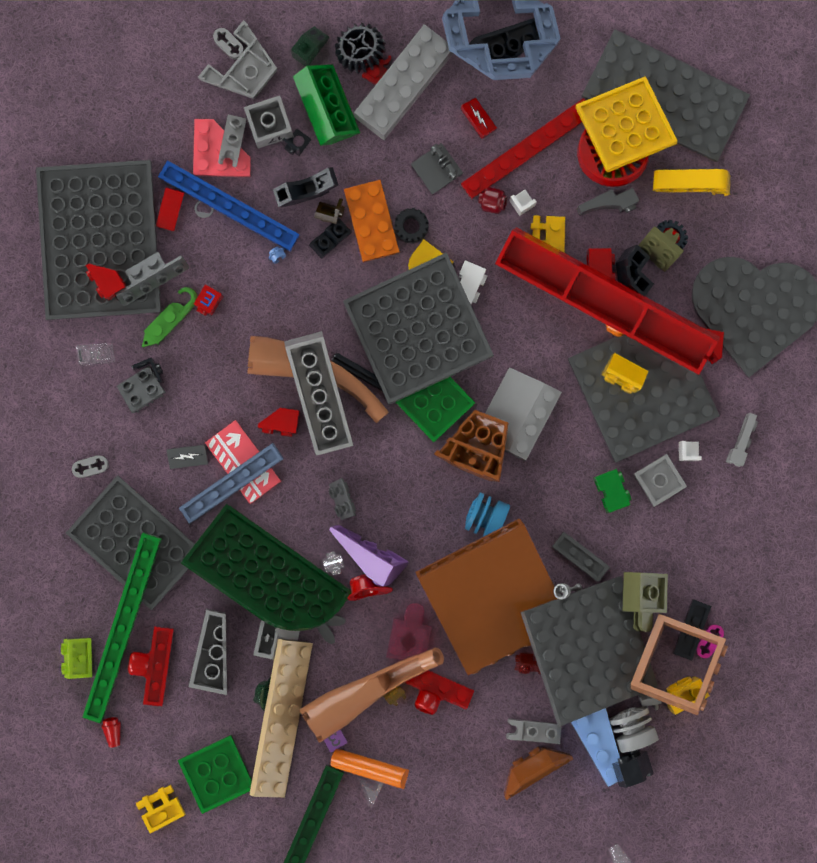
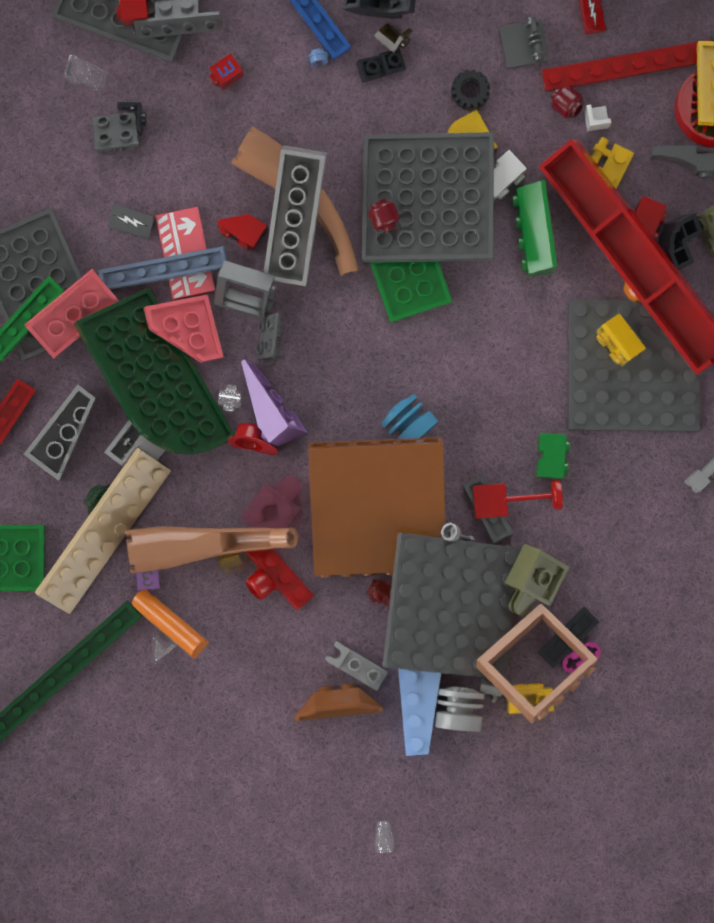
camera: 30 degrees right, 0 degrees up
(89, 462) = (27, 192): light grey beam -> none
(165, 567) = (55, 323): none -> coral tile
(168, 319) = (176, 73): bright green plate -> none
(272, 521) = (187, 326): none -> coral plate
(305, 480) = (241, 301): none -> dark grey window
(325, 630) = (189, 463): dark grey piece -> none
(356, 370) = (345, 213): black axle -> none
(371, 221) = (431, 67): orange plate -> none
(390, 360) = (383, 215): none -> dark red head
(477, 446) = (433, 346): dark orange wedge -> none
(515, 314) = (535, 229): none -> green slope
(526, 407) = (490, 333): light grey slope -> none
(581, 548) = (492, 499): none -> red piece
(632, 768) = (440, 748): black brick -> none
(660, 480) = (606, 468): light grey plate -> none
(689, 451) = (650, 452): white panel -> none

